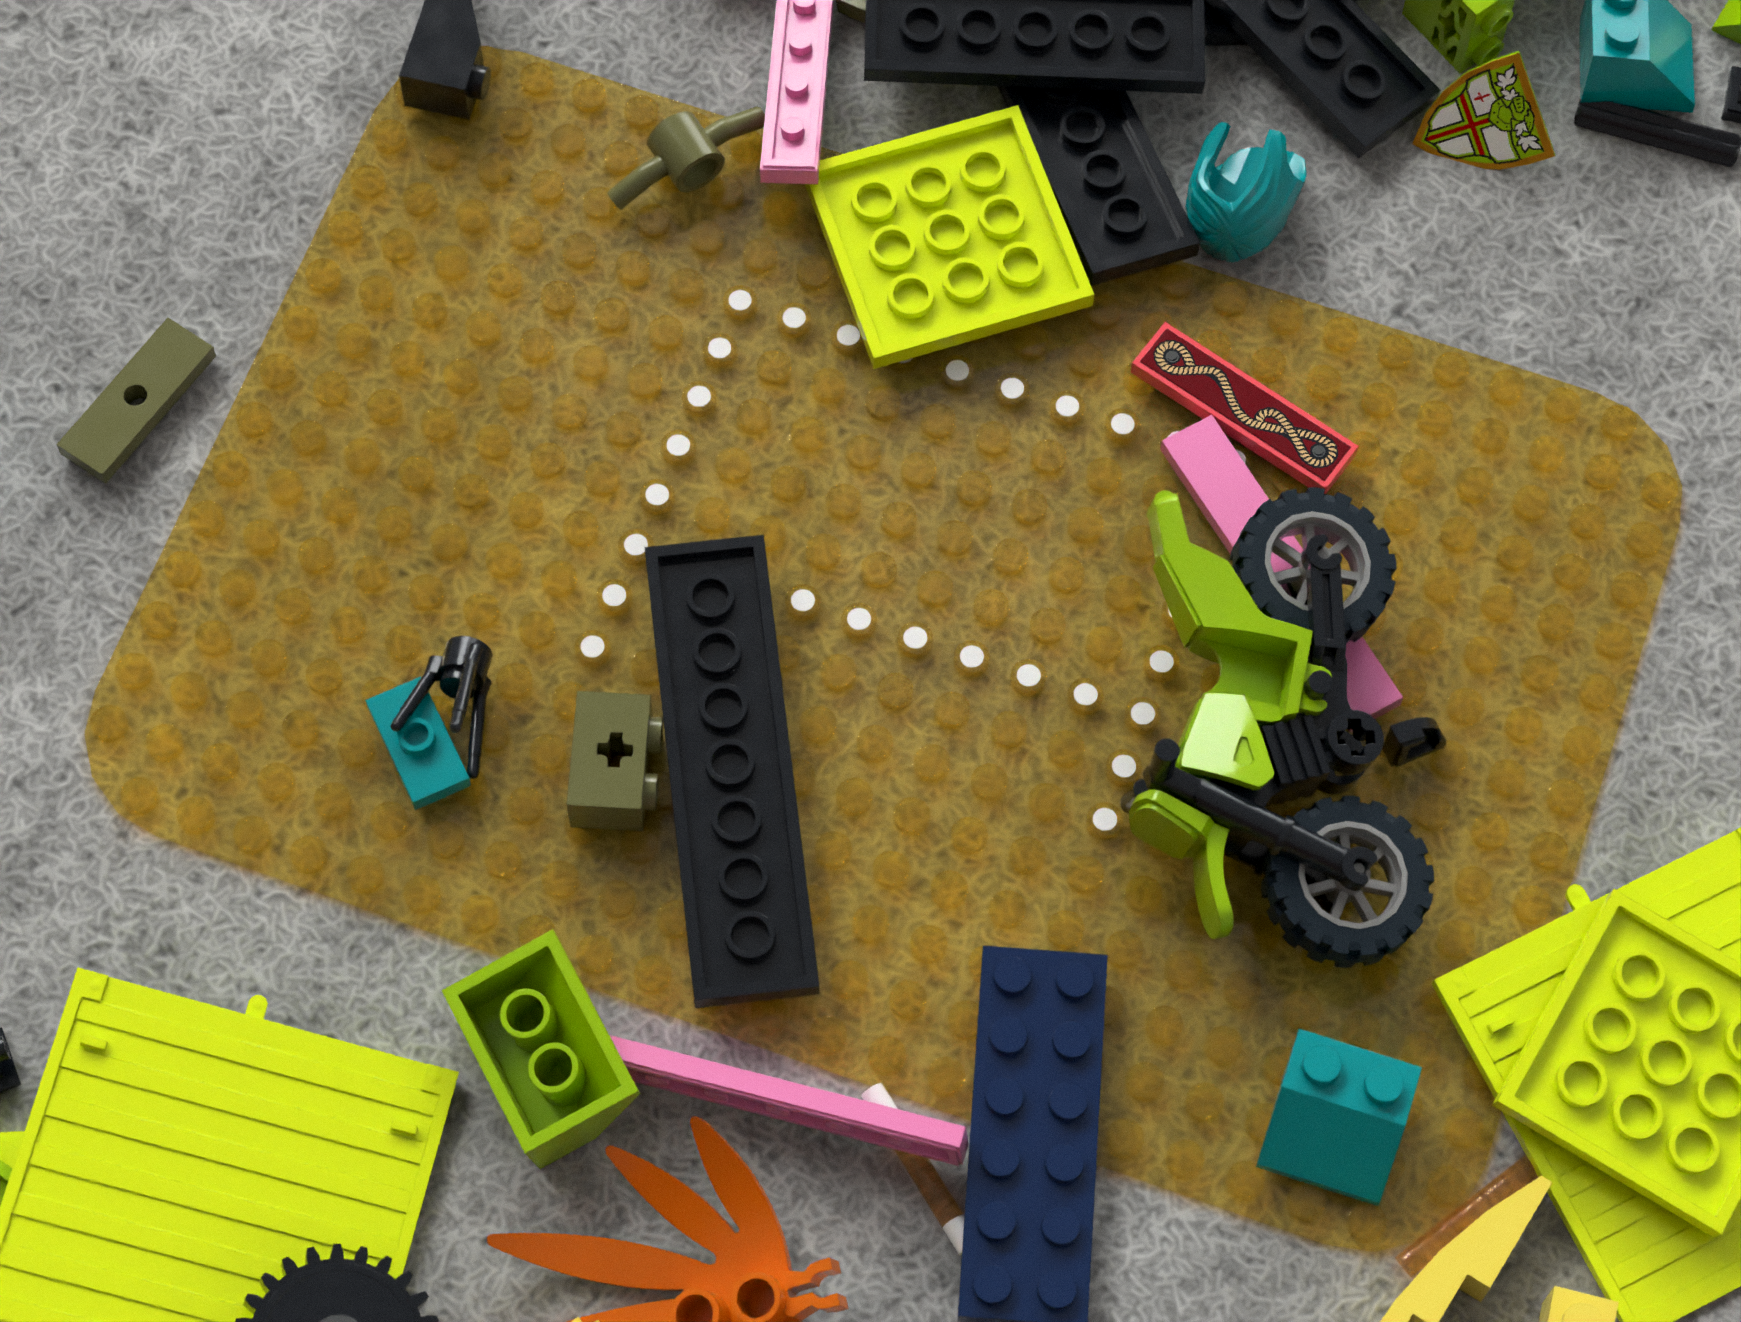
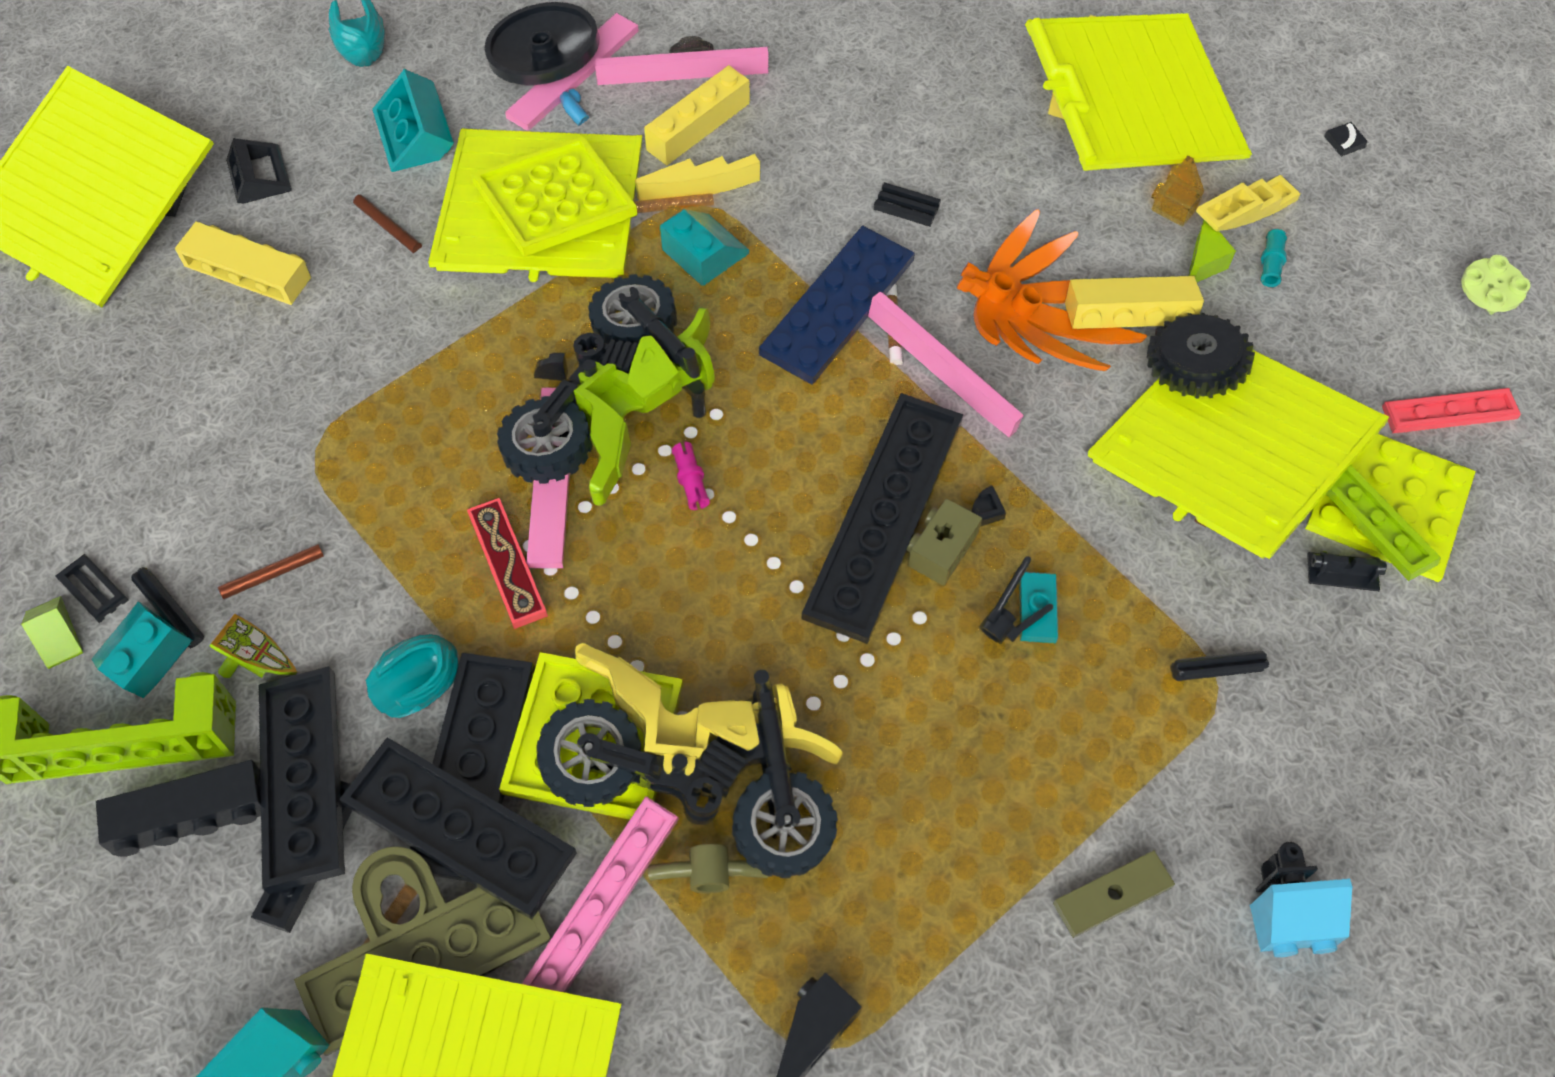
camera: 150 degrees left, 5 degrees down
(100, 791) = (1219, 665): none -> black axle
(542, 1048) = (1050, 428): lime slope -> none
(576, 871) = (988, 506): none -> black tile
(776, 236) = (681, 766): none -> piece
(1069, 676) = (690, 476): none -> dark pink pin
(1566, 247) = (270, 571): none -> copper bar

